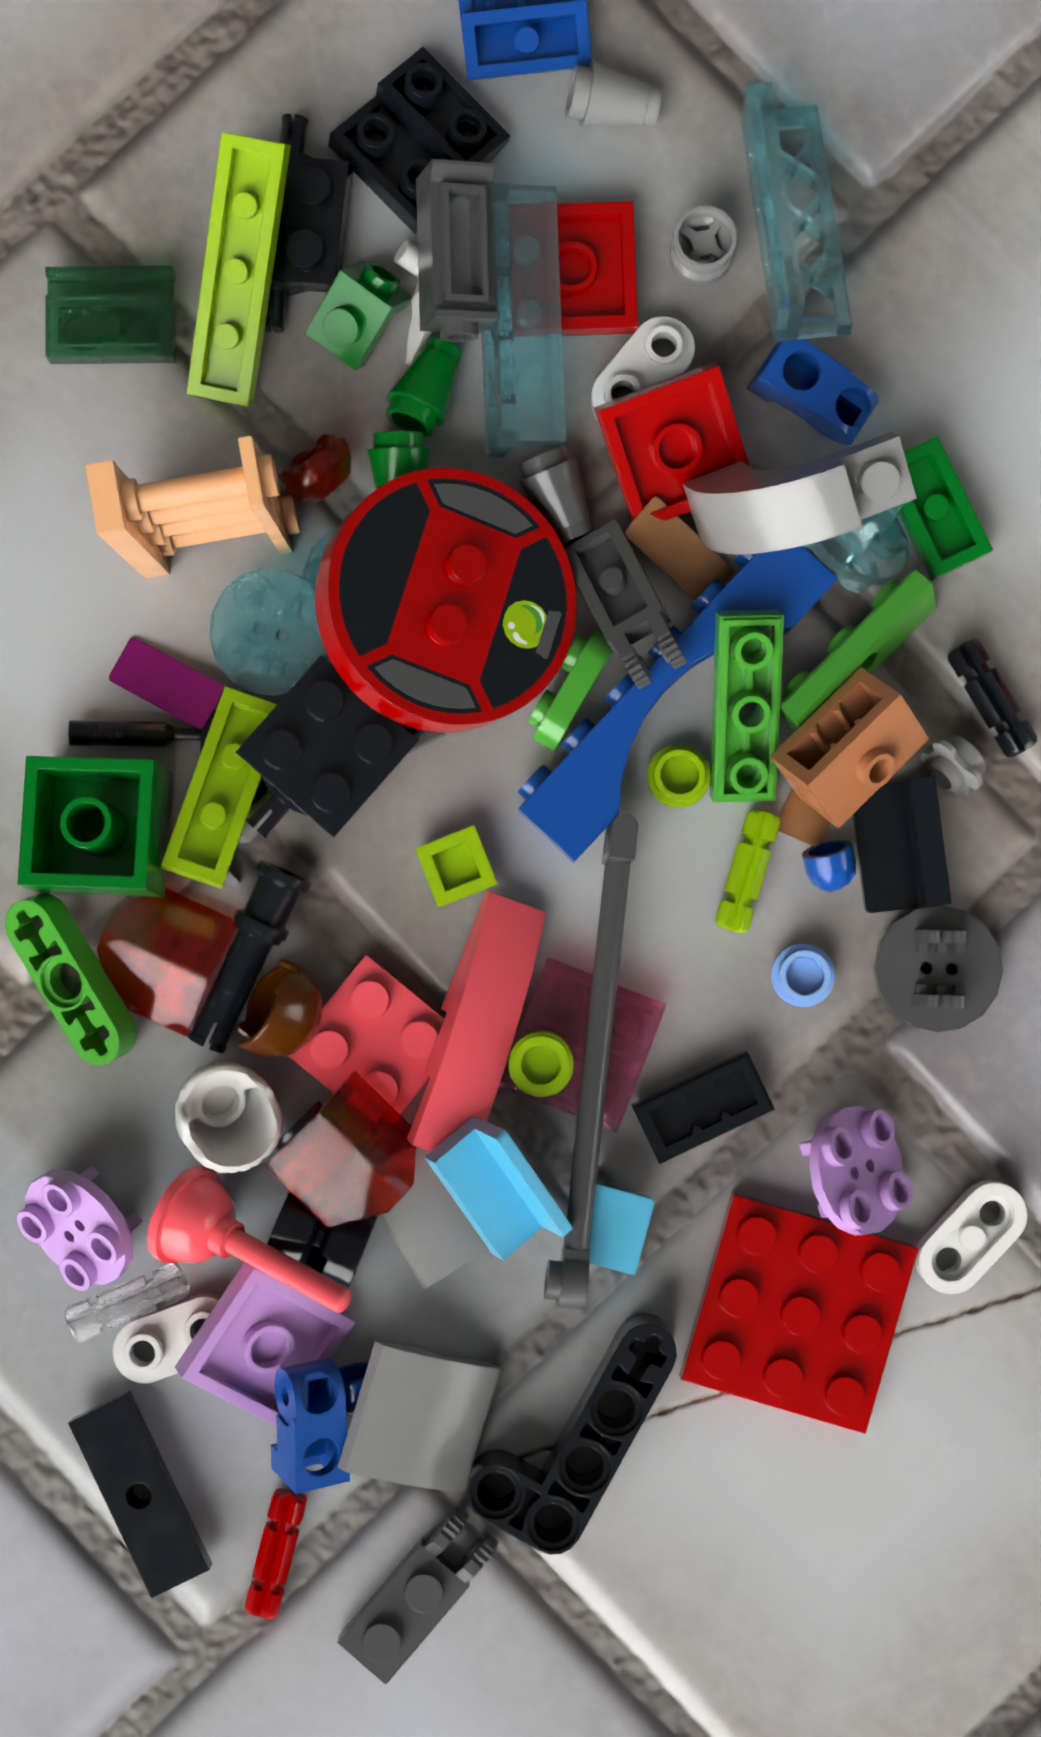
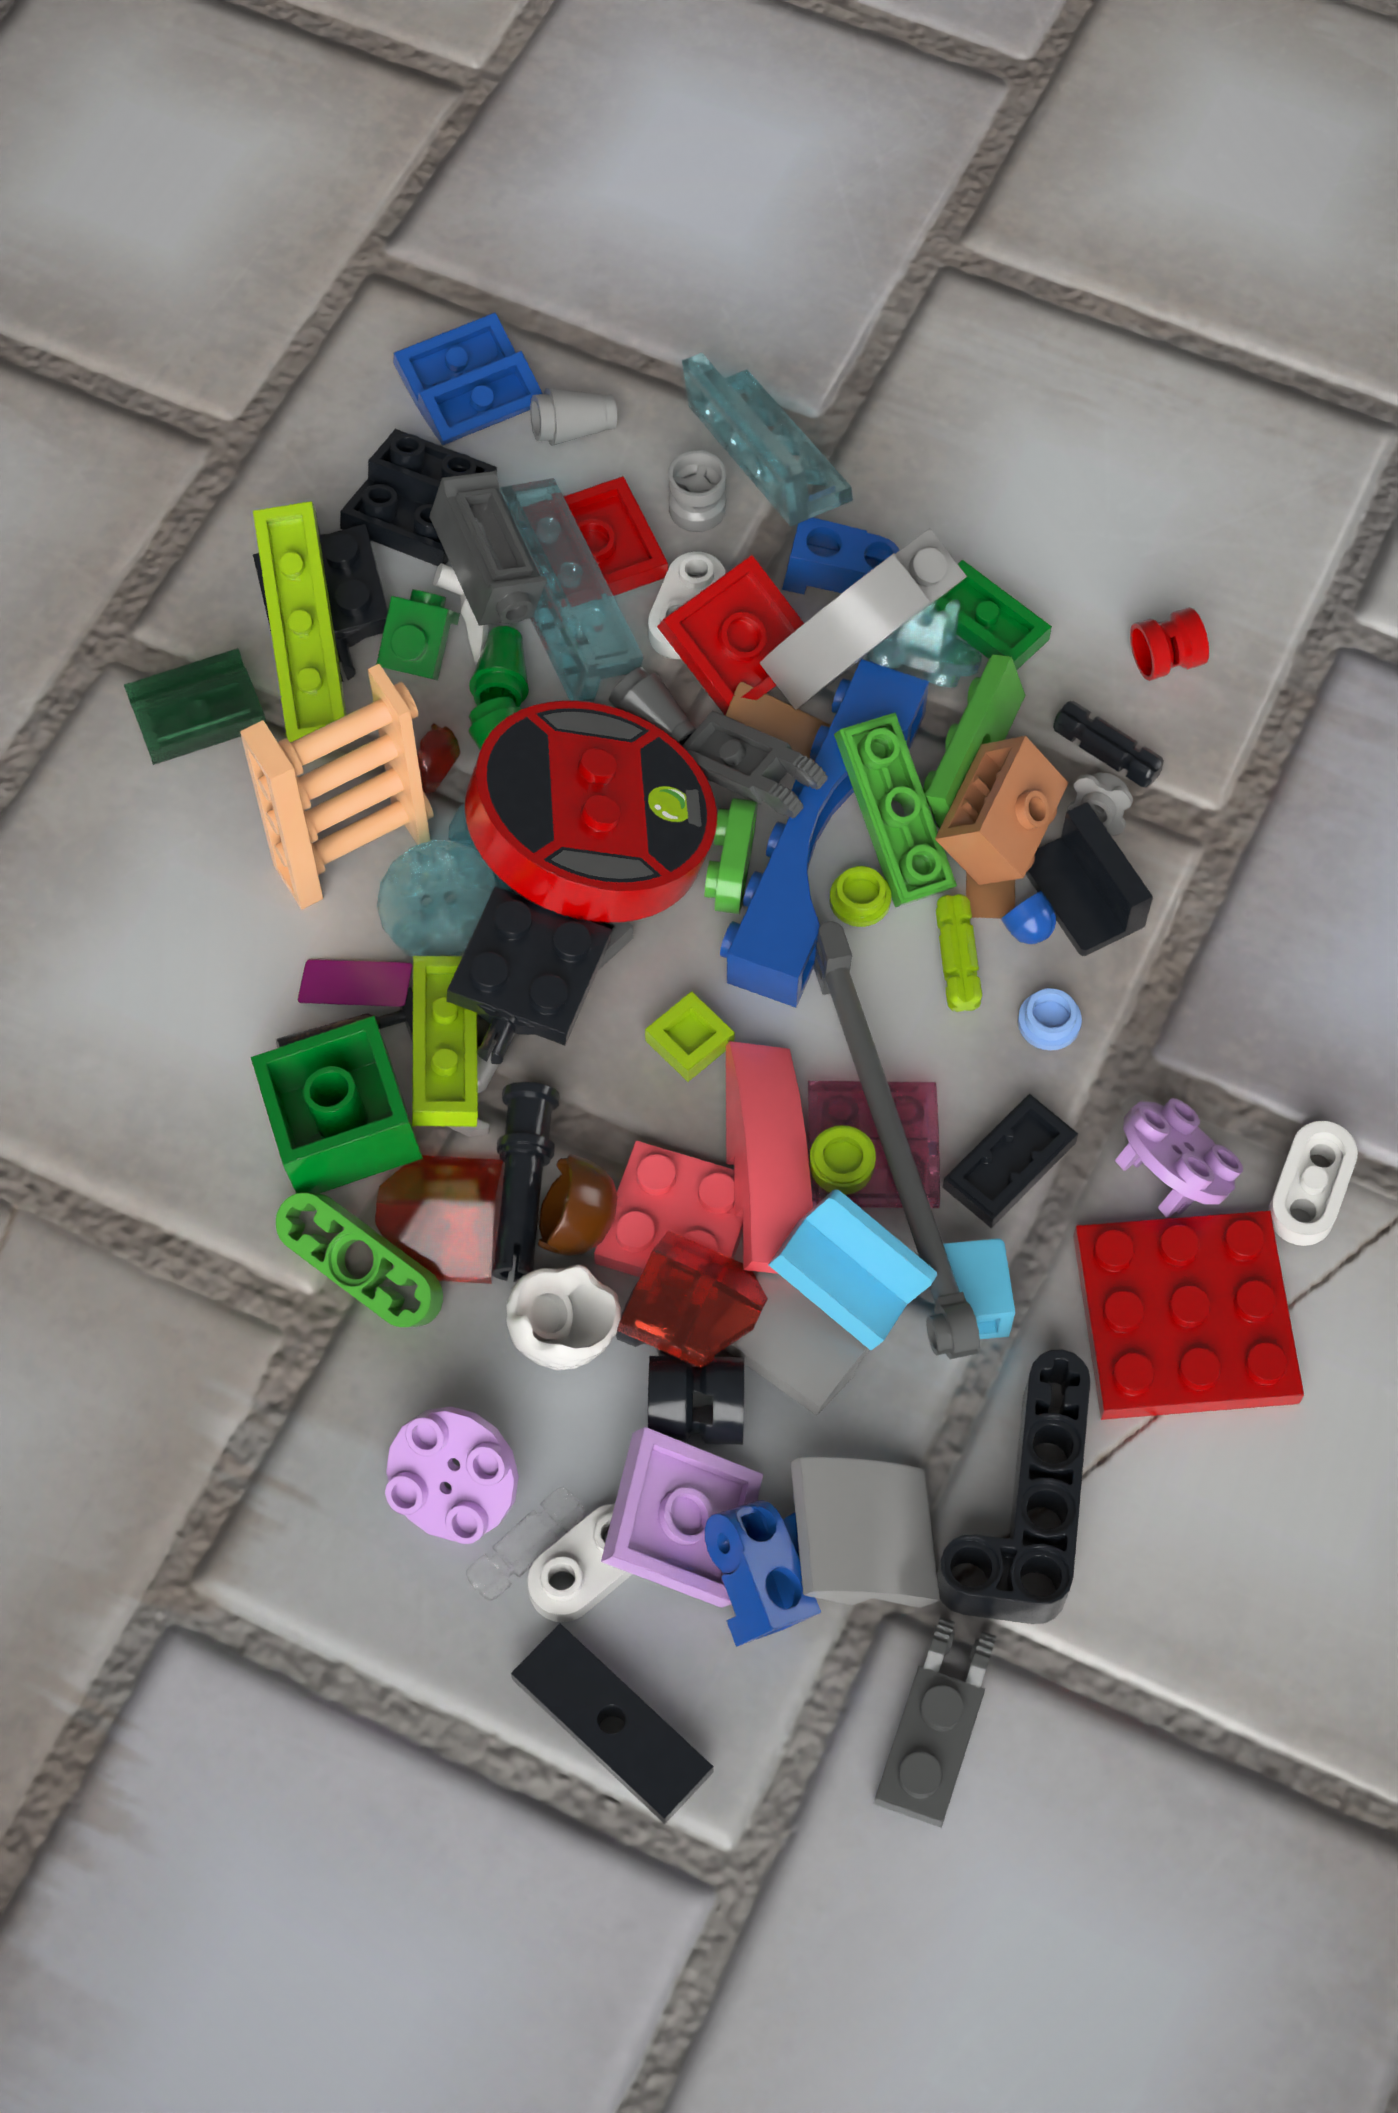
camera: 25 degrees left, 25 degrees down
(199, 1221) = (571, 1421): coral piece -> none
(275, 1553) = (774, 1736): red axle -> none
(936, 998) = (1179, 996): dark grey plate -> none

